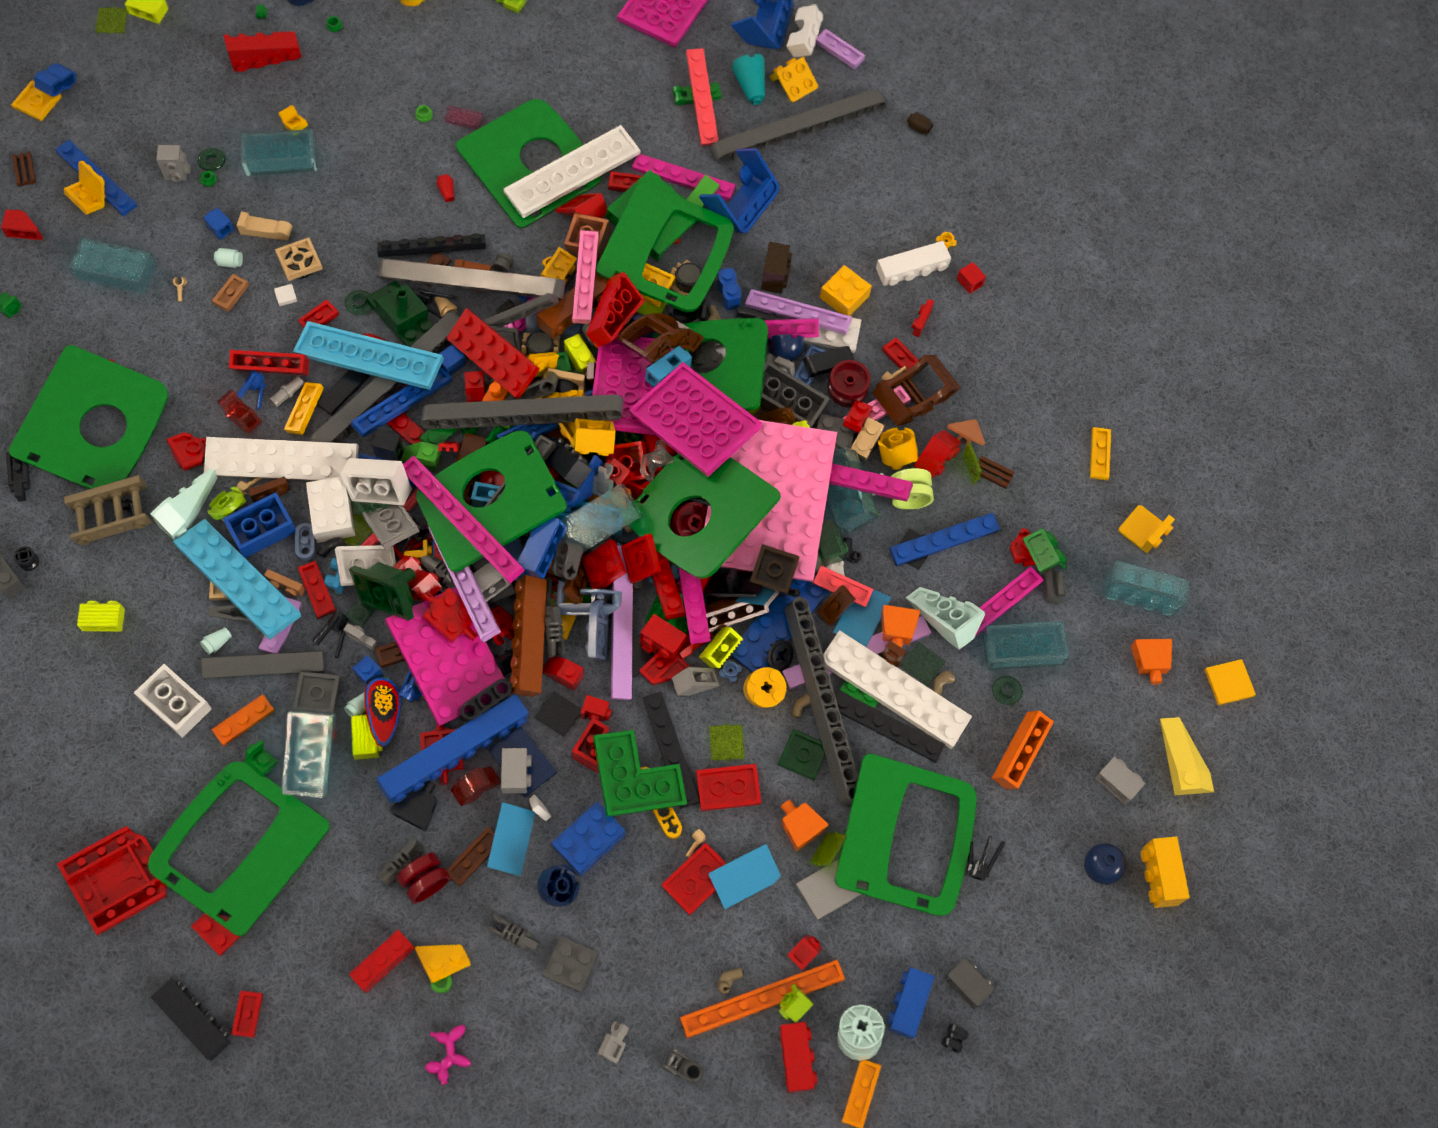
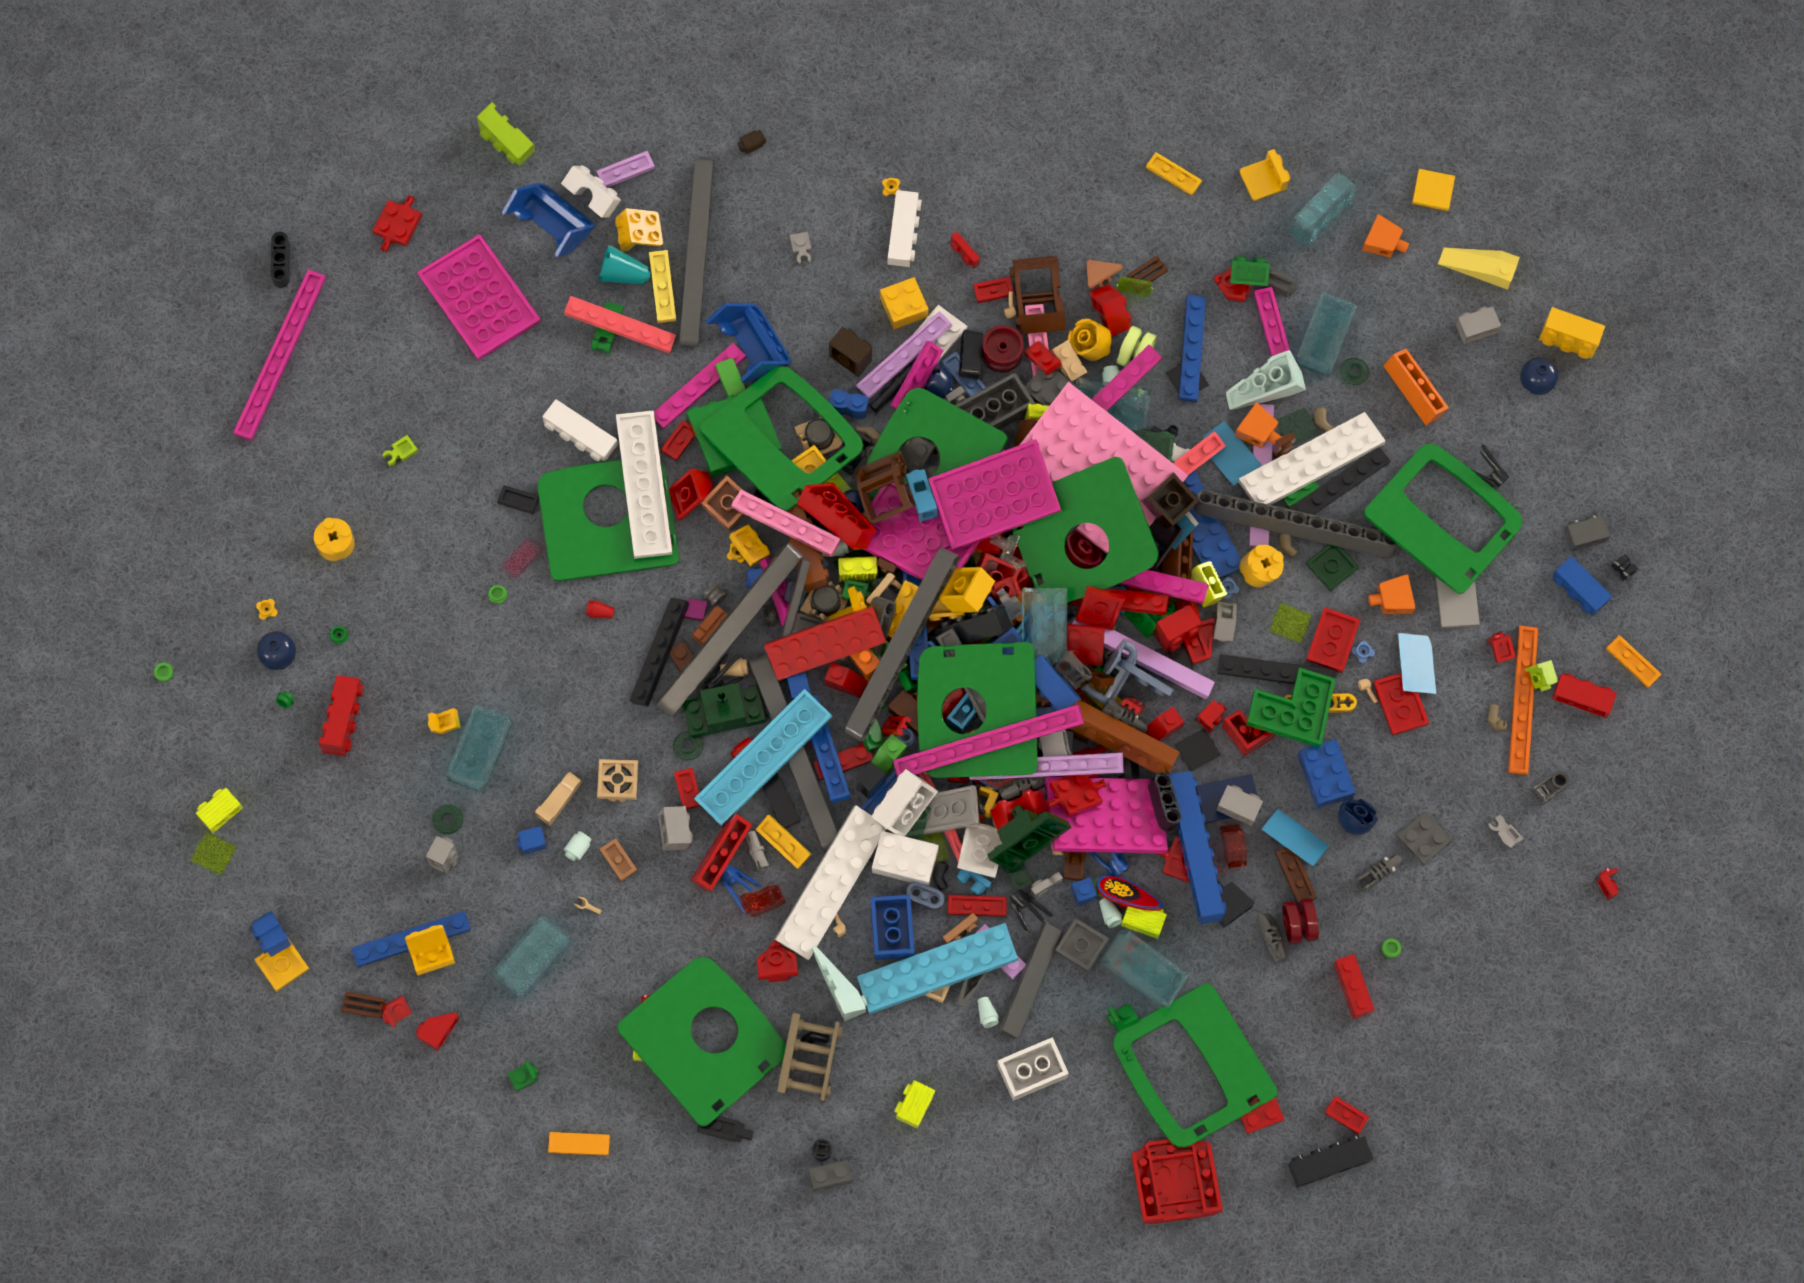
camera: 60 degrees left, 5 degrees up
(24, 190) = (395, 1011): none -> red bracket
(208, 181) = (474, 831): green plate -> none
(226, 503) = (863, 945): lime plate -> none
(243, 720) = (1075, 1018): orange plate -> none
(275, 320) = (675, 828): none -> light grey brick
(279, 486) = (858, 898): reddish brown plate -> none
(285, 295) = (645, 810): white tile -> none
(442, 960) = (1374, 939): yellow wing -> none
(444, 459) = (910, 733): none -> medium blue plate
(459, 1060) = (1442, 962): dark pink piece -> none
(484, 256) = (696, 609): none -> magenta tile
(513, 94) = (518, 499): none -> black tile
(539, 808) = (1277, 803): white tile -> none
(568, 638) = (1134, 705): none -> red tile
(595, 108) = (580, 431): none -> white brick
(730, 815) = (1369, 652): none -> medium blue plate
(755, 115) = (662, 286): none -> light yellow plate
(778, 414) = (1011, 425): clear orange plate -> none
(786, 655) = (1232, 535): black gear -> none
(828, 849) = (1427, 585): clear neon green piece -> none
(836, 605) = (1214, 469): reddish brown plate -> none
(852, 197) = (801, 244): none -> light grey plate
(855, 1042) = (1589, 645): light aqua wheel -> none
(971, 277) = (944, 186): red panel -> none

